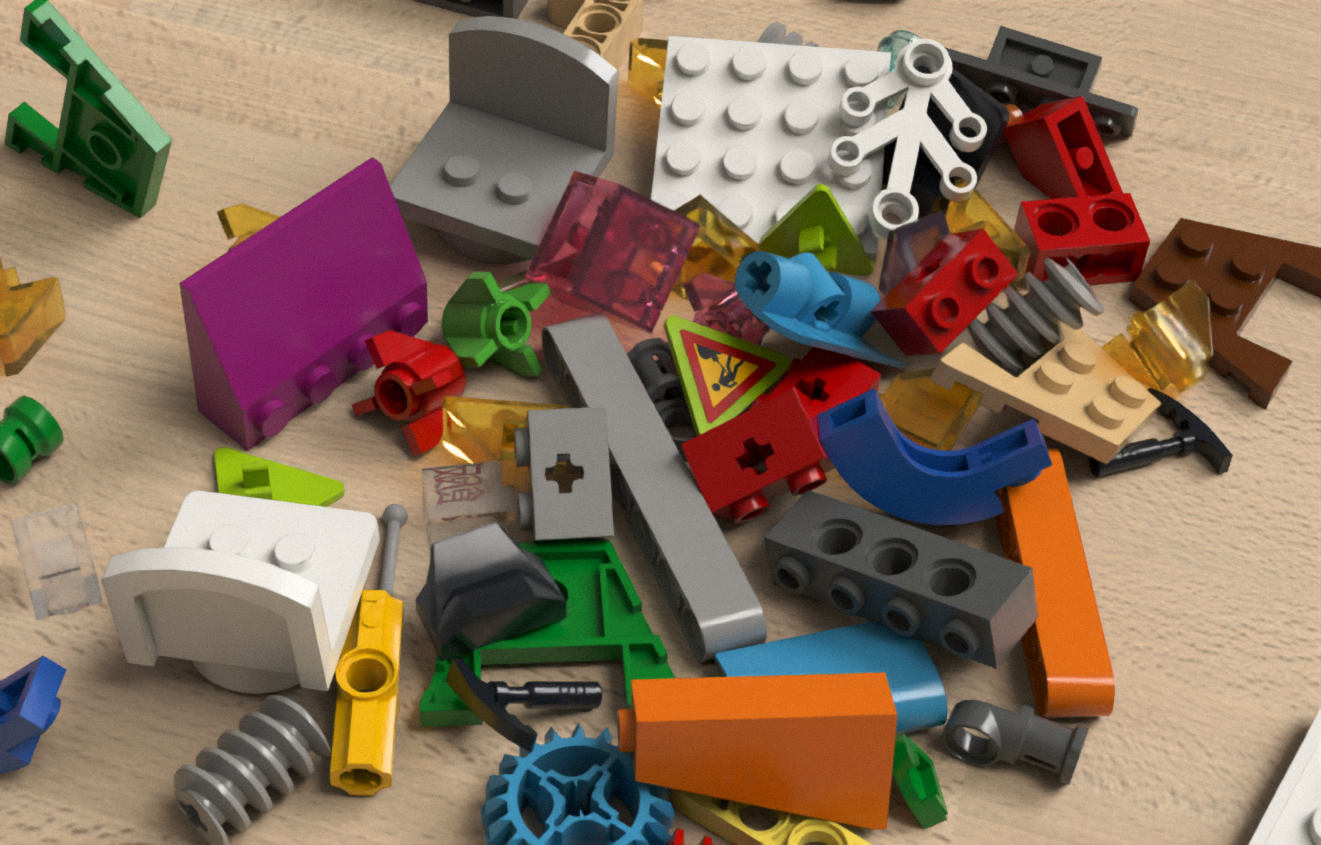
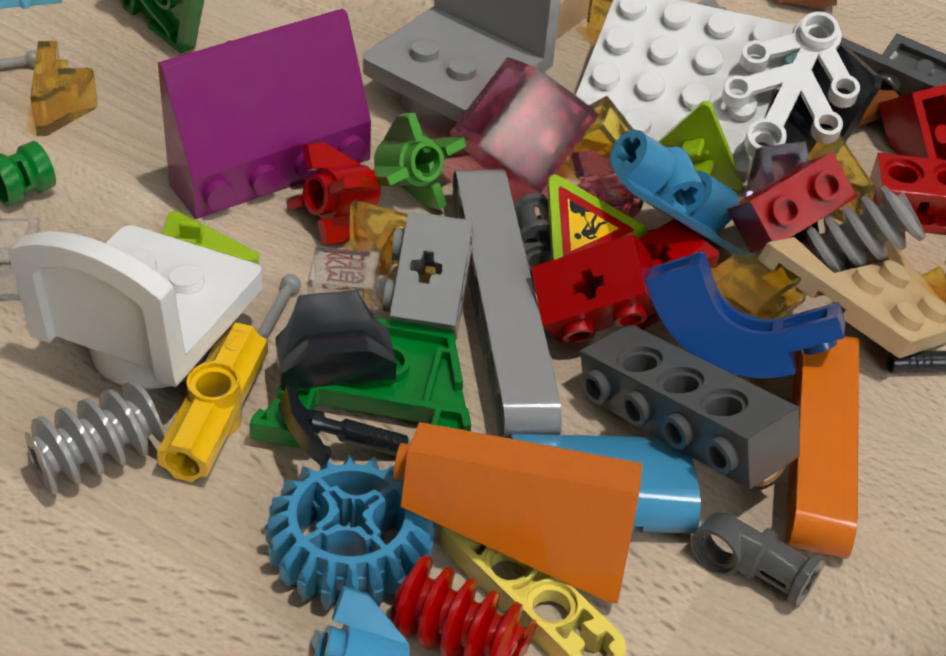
camera: 15 degrees right, 5 degrees down
(918, 782) = (655, 568): green tile -> none

